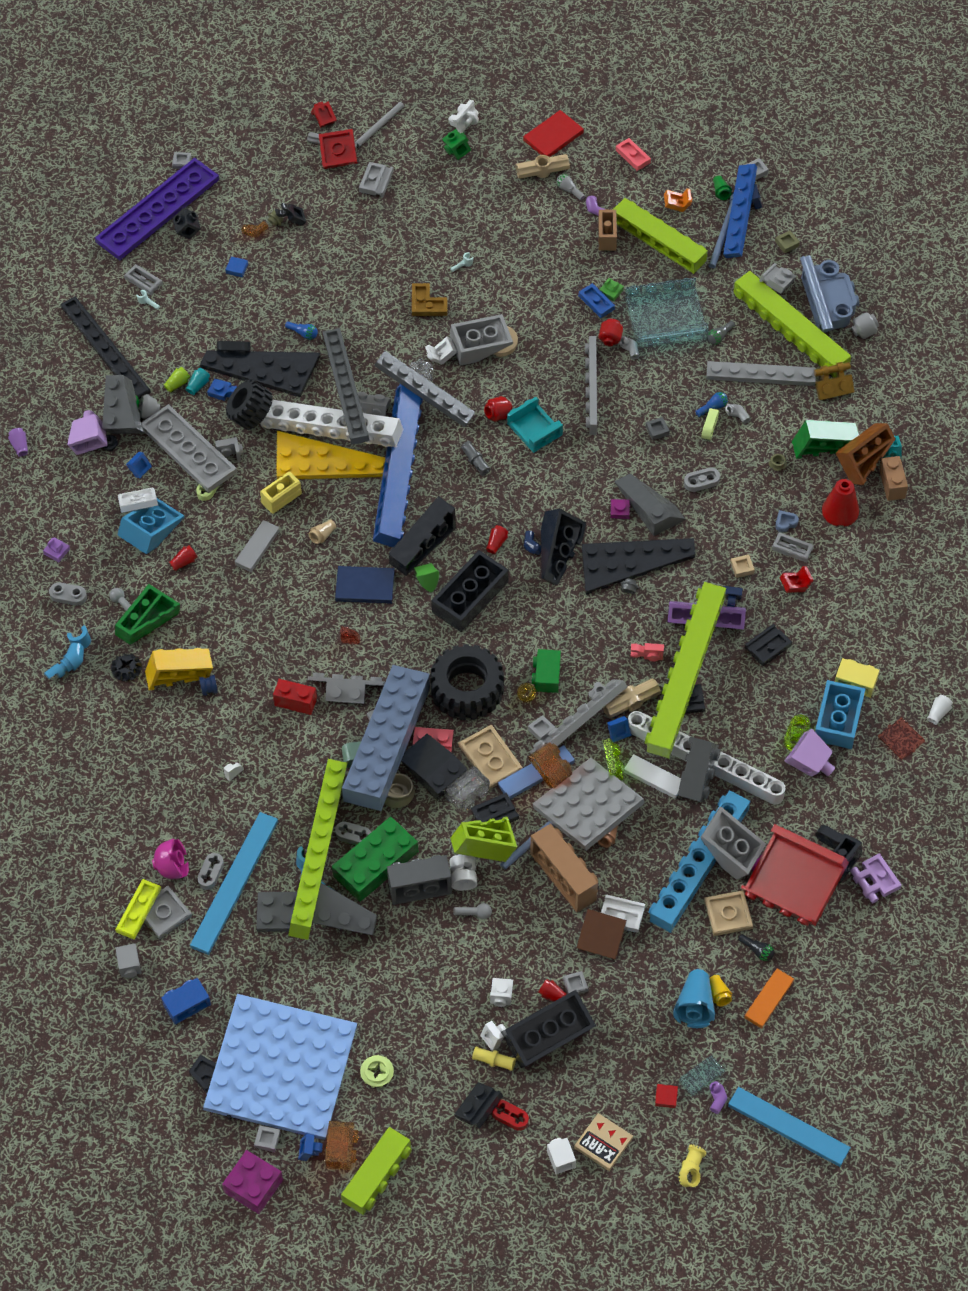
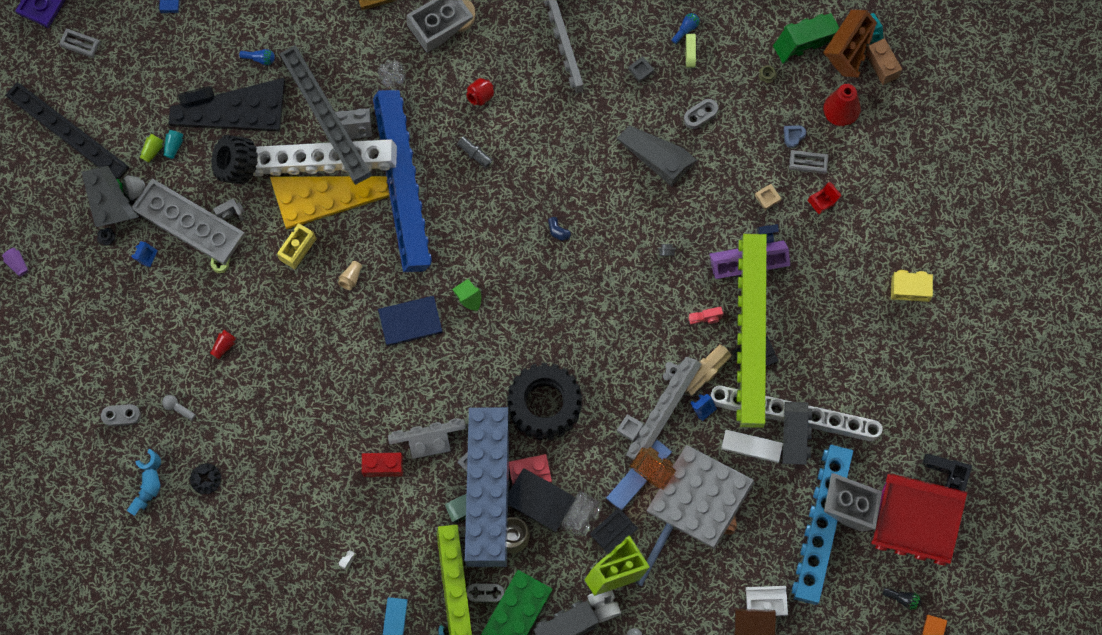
camera: 15 degrees left, 15 degrees up
(56, 549) = (93, 370): medium lavender tile -> none
(87, 434) = (81, 235): lavender torso -> none
(137, 500) = (157, 294): white tile -> none
(144, 299) = (89, 65): light aqua hand -> none
(146, 614) = (206, 419): green wedge -> none
(149, 526) = (177, 317): dark azure slope -> none
(177, 665) = (257, 465): yellow wedge -> none
(208, 685) = (293, 476): dark blue wheel -> none
(220, 389) = (199, 146): blue plate -> none
(257, 546) = (291, 309): light grey tile -> none
(349, 635) = (413, 382): clear red tile -> none
(423, 536) = (452, 255): black wedge -> none
(424, 388) = (402, 92): plate -> none
(442, 351) = (404, 43): white bracket -> none
(470, 591) = (516, 301): black brick -> none
(490, 755) = (590, 470): tan tile -> none
(497, 538) = (523, 234): red cone -> none
(522, 690) = (598, 393): clear yellow plate -> none
(534, 425) = (520, 99): teal panel -> none
(547, 670) = (617, 365): green brick -> none
(558, 539) = (583, 217): black wedge -> none
(564, 867) = (699, 573): medium nougat brick -> none
(612, 754) = (712, 447): clear neon green plate -> none
(617, 561) = (651, 223): black wing -> none
(620, 508) = (631, 167): magenta plate -> none
(728, 913) = (865, 569): tan tile -> none
(737, 411) = (712, 28): light grey arm -> none
(768, 644) = (817, 275): black plate -> none
(793, 732) = (872, 361): clear neon green plate -> none
(811, 755) = (894, 382): lavender torso -> none
(839, 714) = (908, 332): dark azure brick -> none
(880, 874) = (995, 488): lavender plate -> none
(901, 738) = (970, 336): clear red piece -> none
(939, 709) = (998, 297): white cone -> none

